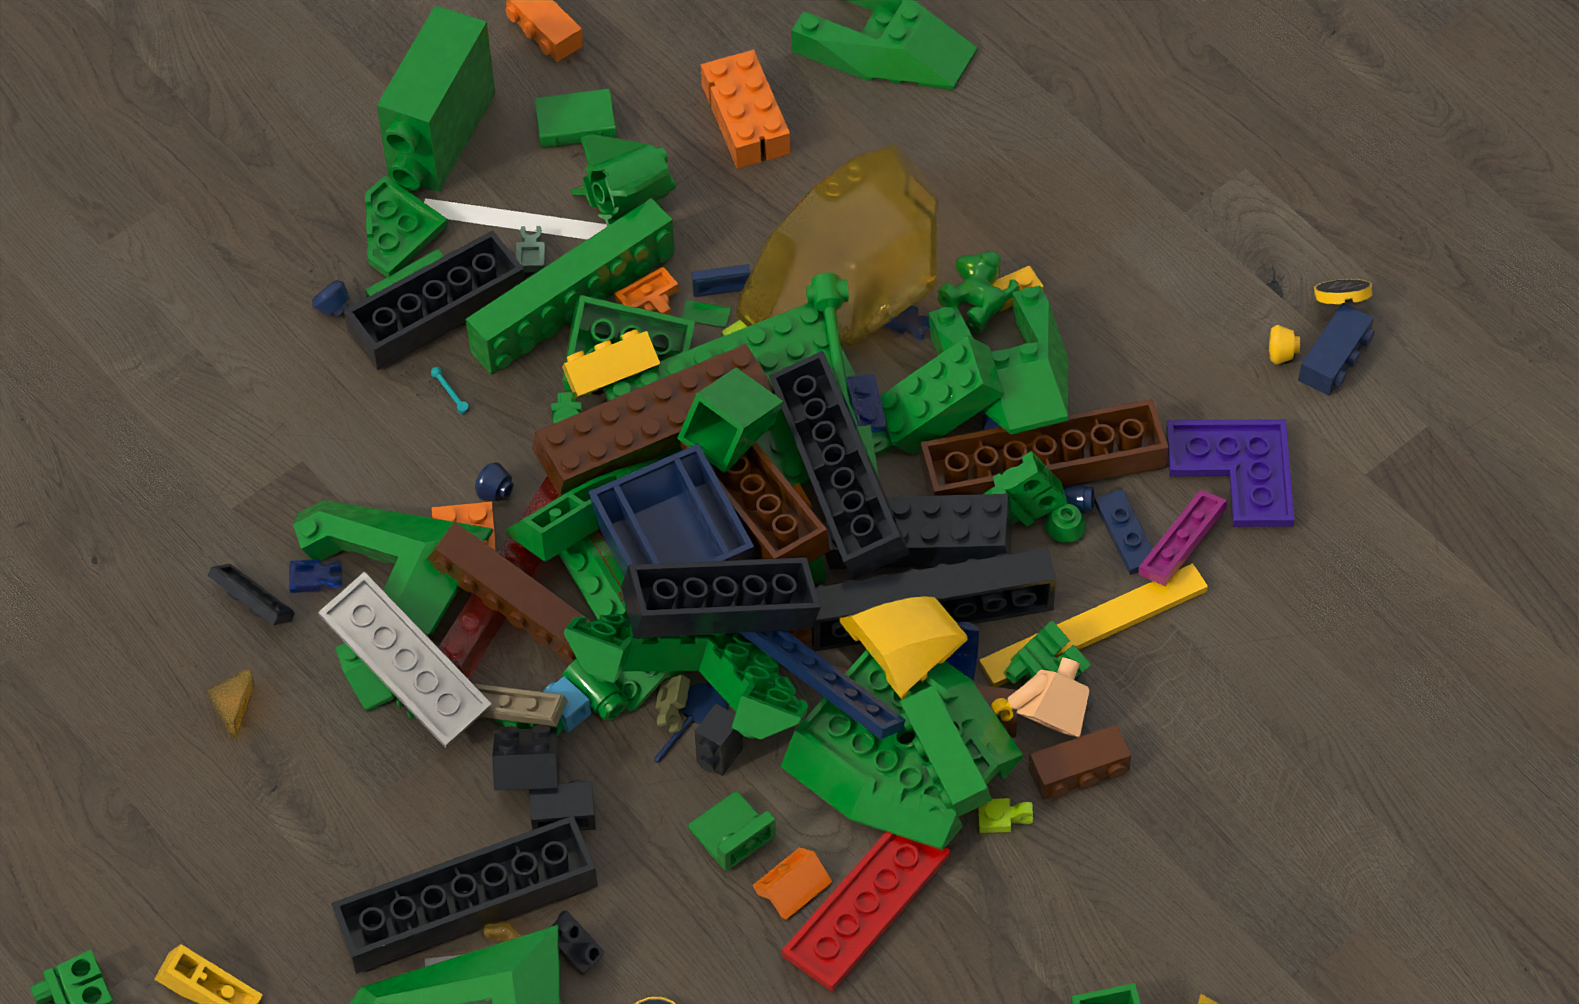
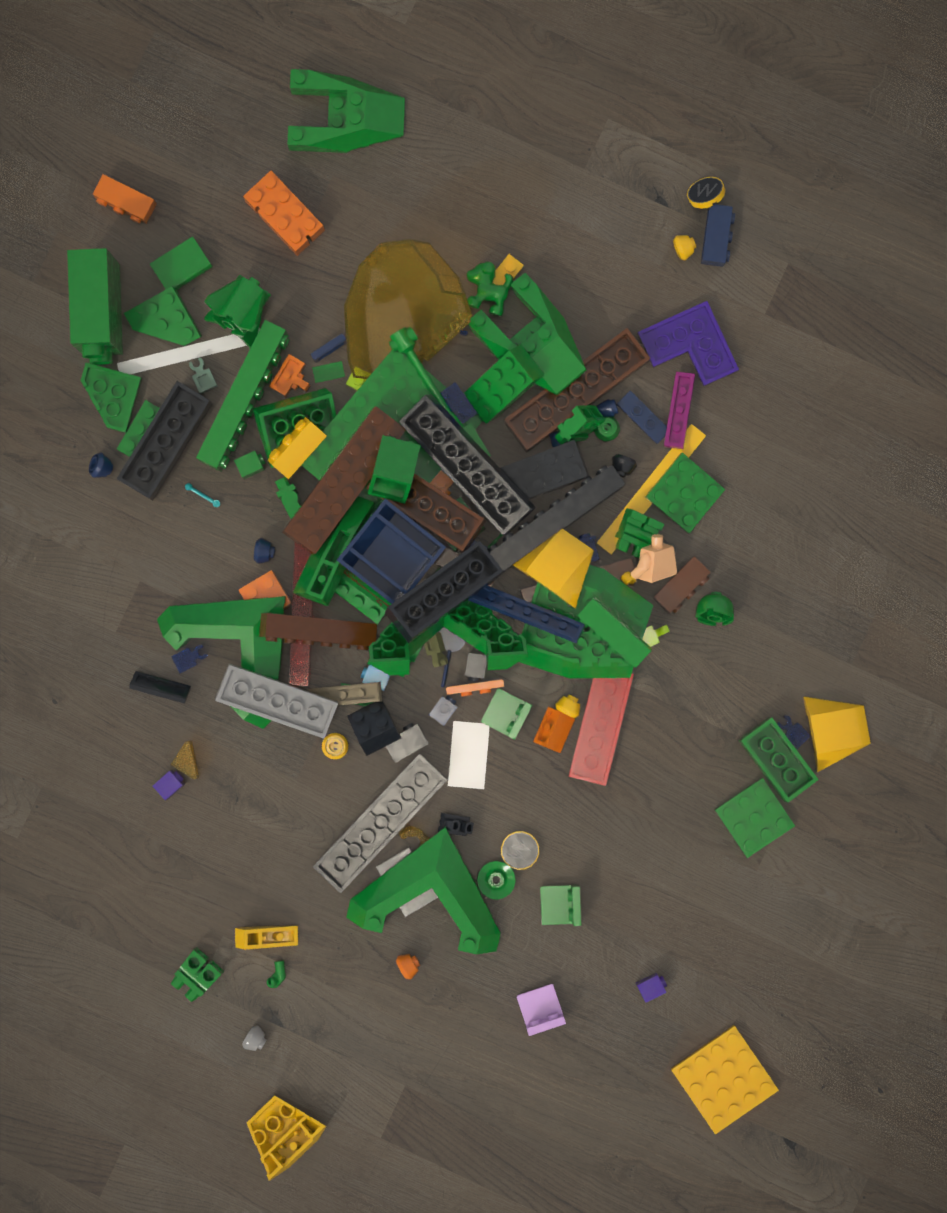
camera: 25 degrees left, 30 degrees up
(189, 722) = (169, 784): none -> dark purple brick
(455, 766) = (328, 746): none -> yellow cone
(518, 166) = (164, 318): none -> green plate
(535, 374) = (250, 464): none -> green brick
(640, 786) = (443, 710): none -> brick
(646, 868) = (468, 755): none -> white sticker
(703, 774) = (483, 687): none -> orange plate
(832, 854) = (569, 706): none -> yellow cone
(1069, 574) = (623, 464): none -> black cone
(1114, 812) = (714, 609): none -> green cylinder
(1141, 646) = (685, 493): none -> green plate

